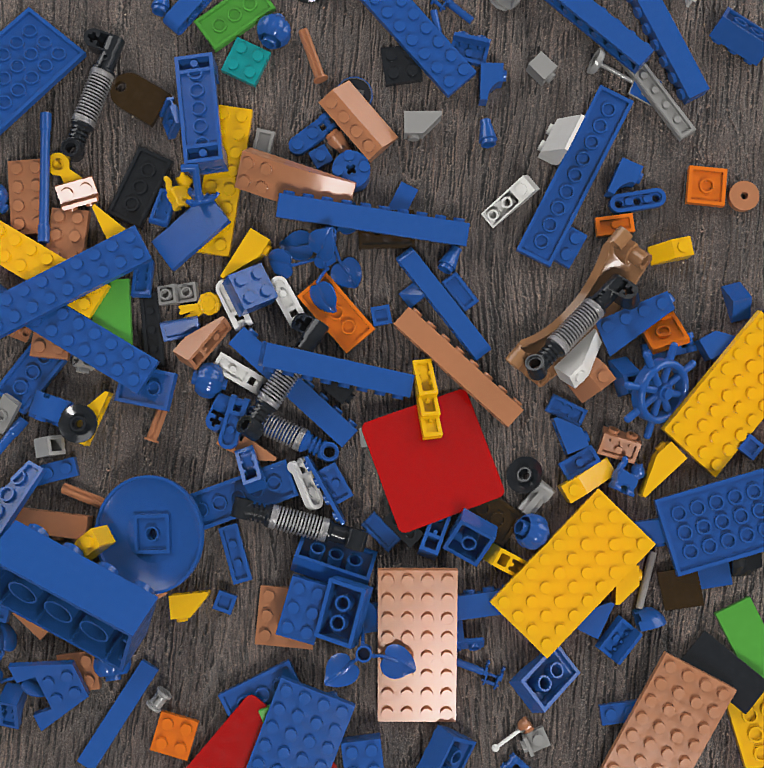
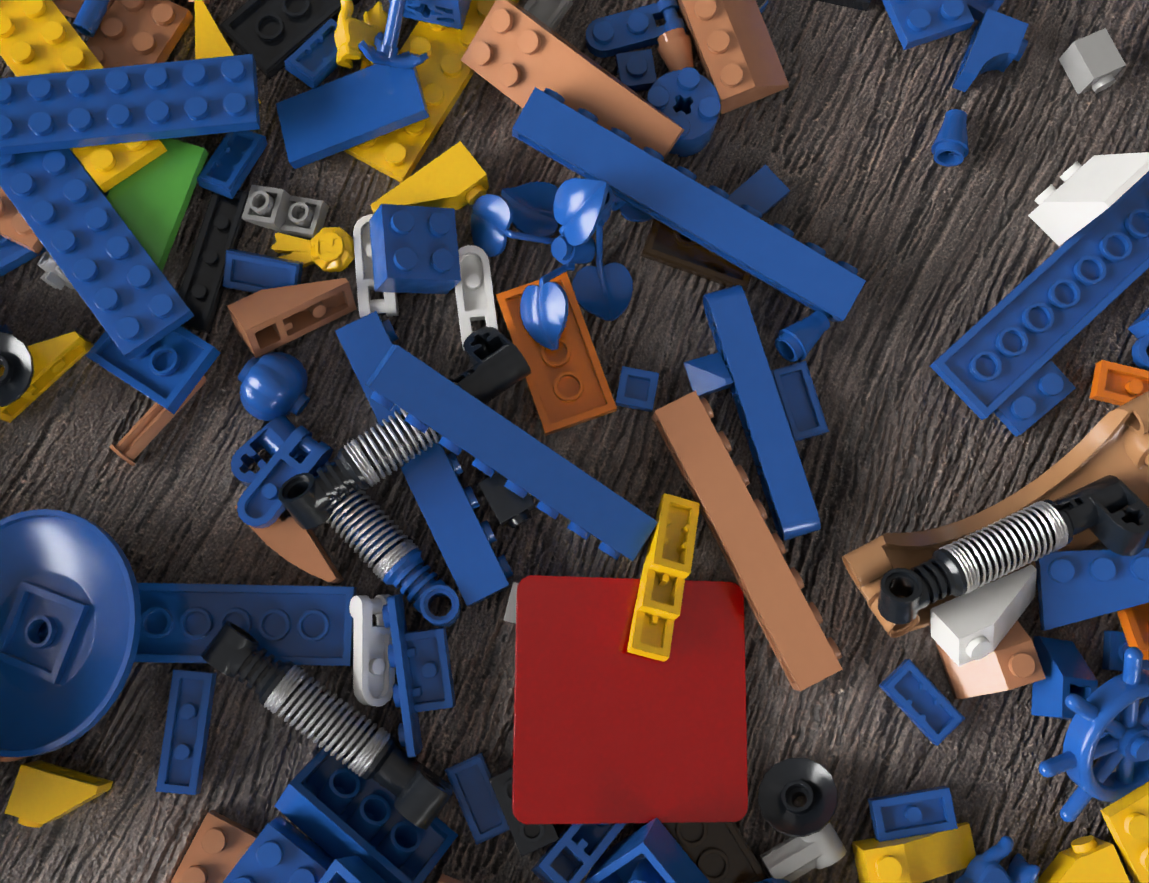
camera: 20 degrees right, 5 degrees down
(225, 601) = (127, 818): blue plate -> none
(239, 373) = (334, 394): white plate -> none
(250, 469) = (275, 582): blue arch -> none
(420, 123) = (837, 76): light grey slope -> none
(510, 200) = (953, 271): white slope -> none
(570, 436) = (913, 755): blue slope -> none
(619, 444) = (1004, 808): nougat bracket -> none

